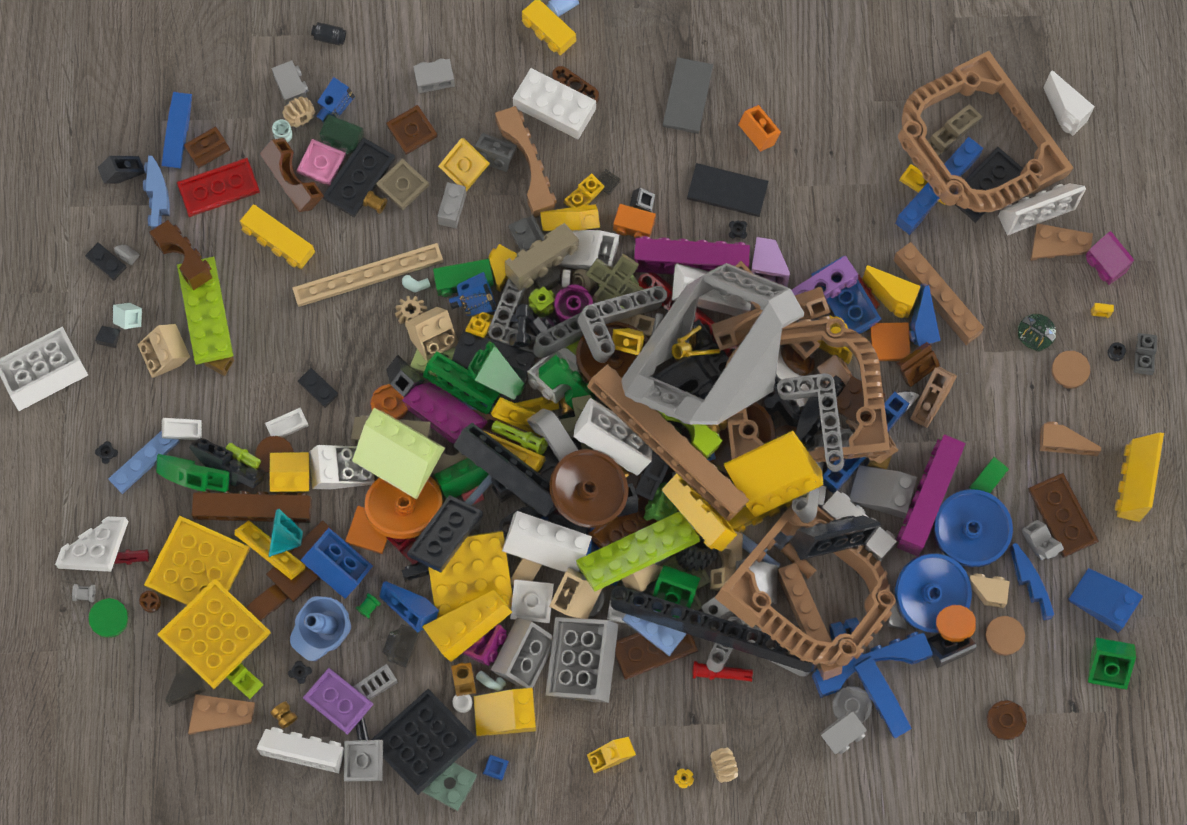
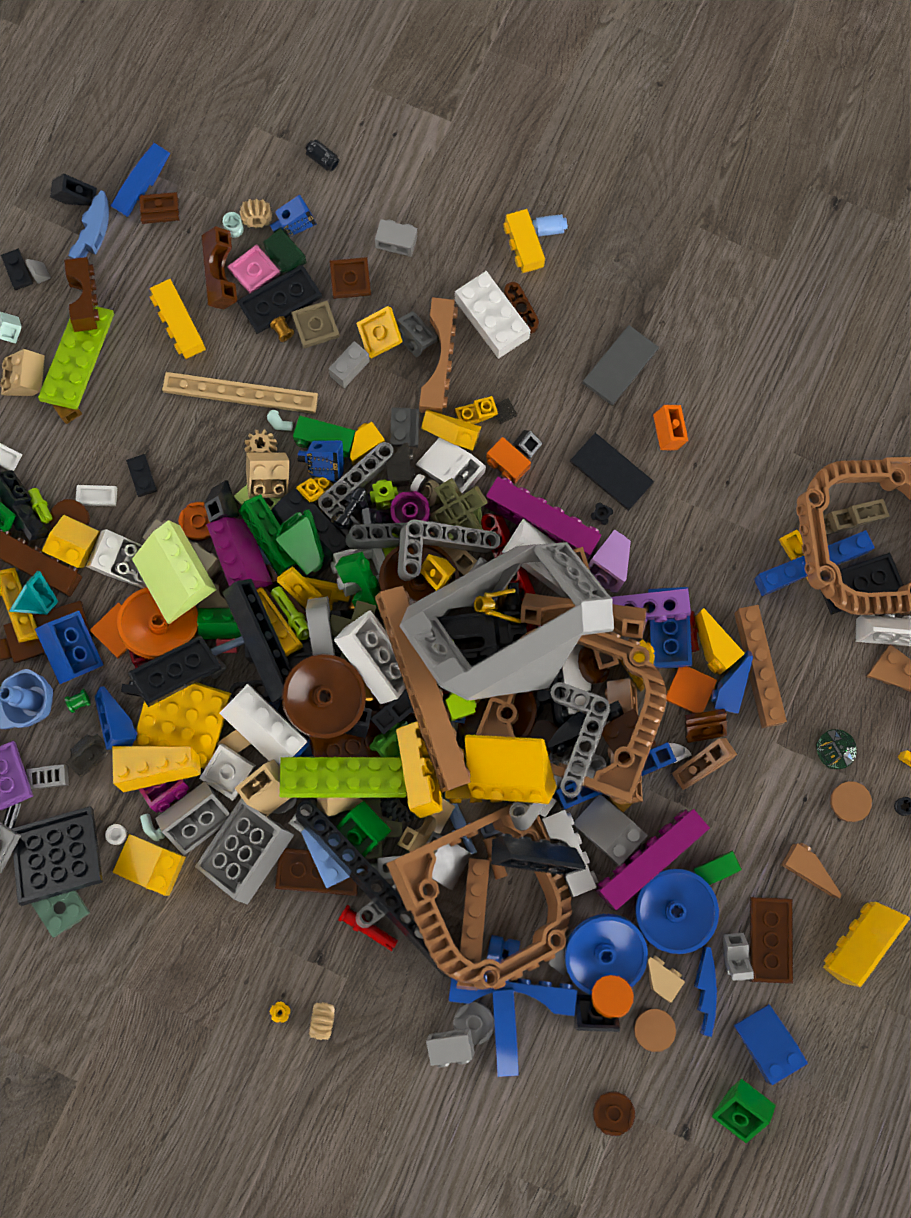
camera: 25 degrees right, 5 degrees up
(218, 187) = (151, 249): red tile -> none
(289, 82) = (263, 182): light grey brick -> none
(462, 685) = (126, 822): pearl gold brick -> none
(495, 767) = (113, 912): blue tile -> none
(541, 257) = (402, 452): dark tan wedge -> none
(611, 754) = (224, 955): yellow slope -> none

